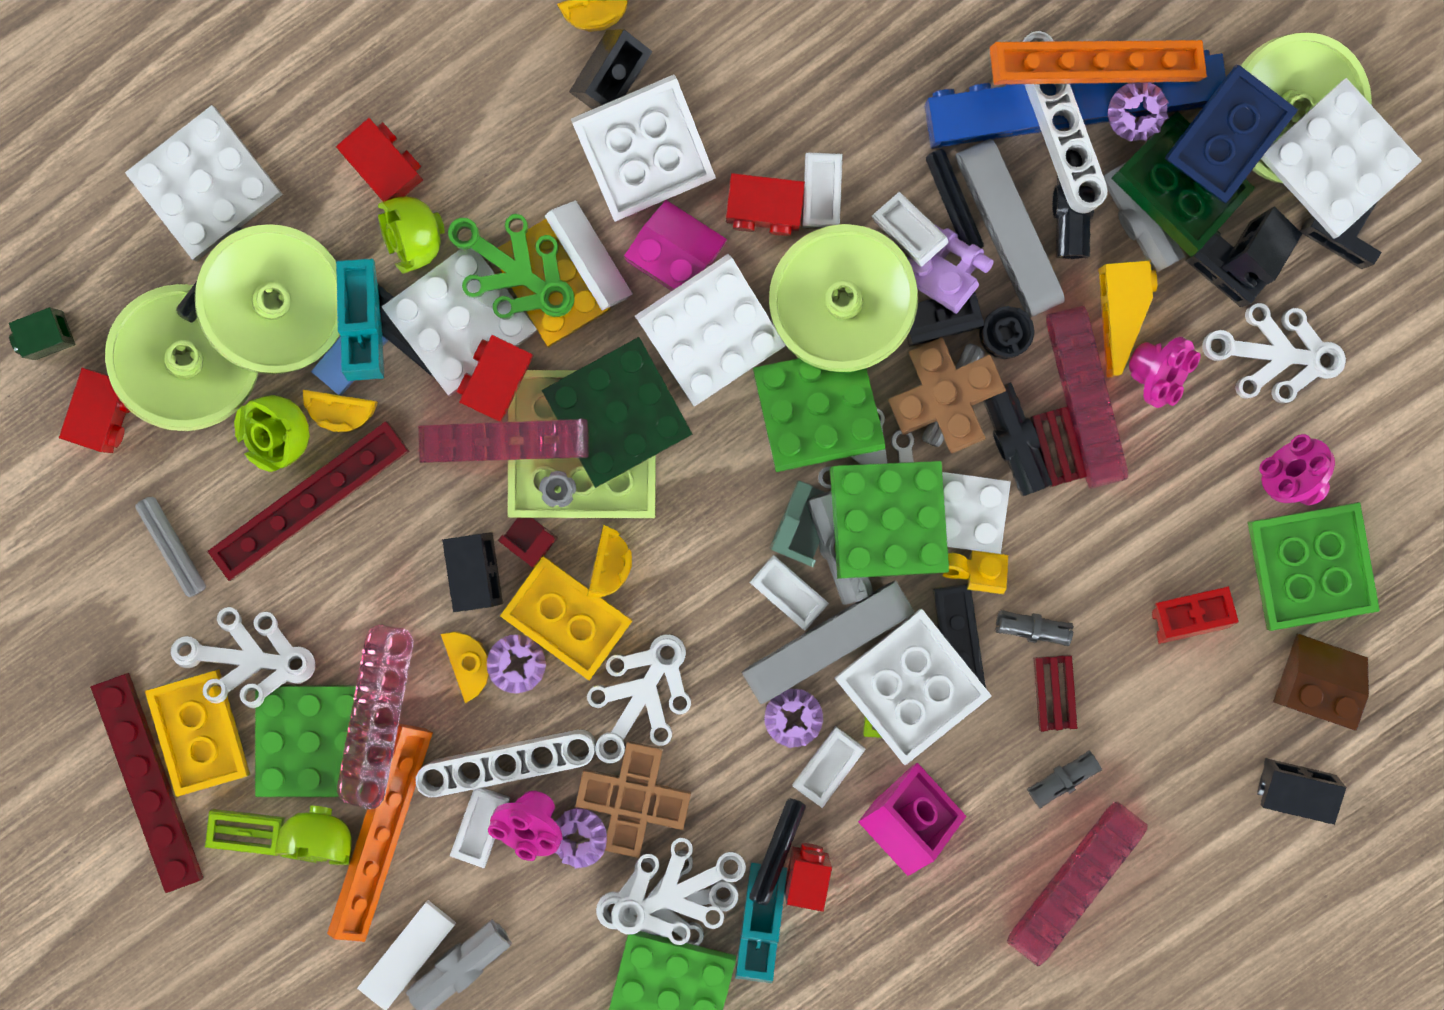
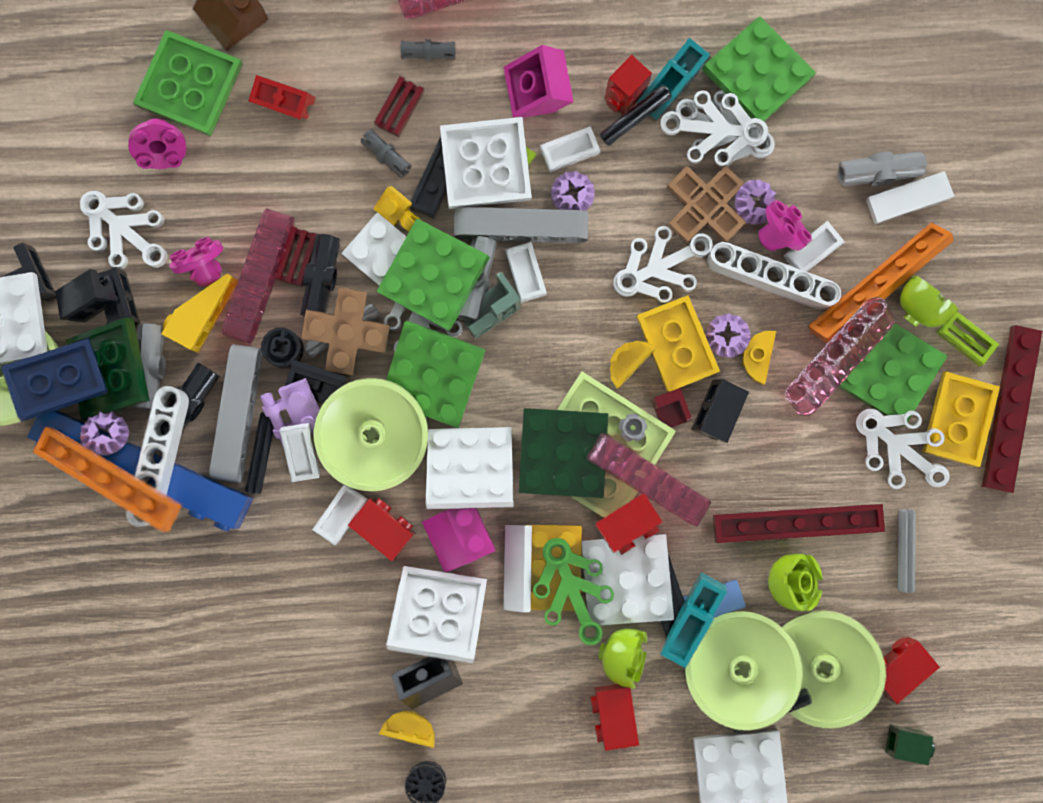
camera: 155 degrees left, 5 degrees down
(338, 412) = (744, 569): yellow plate -> none

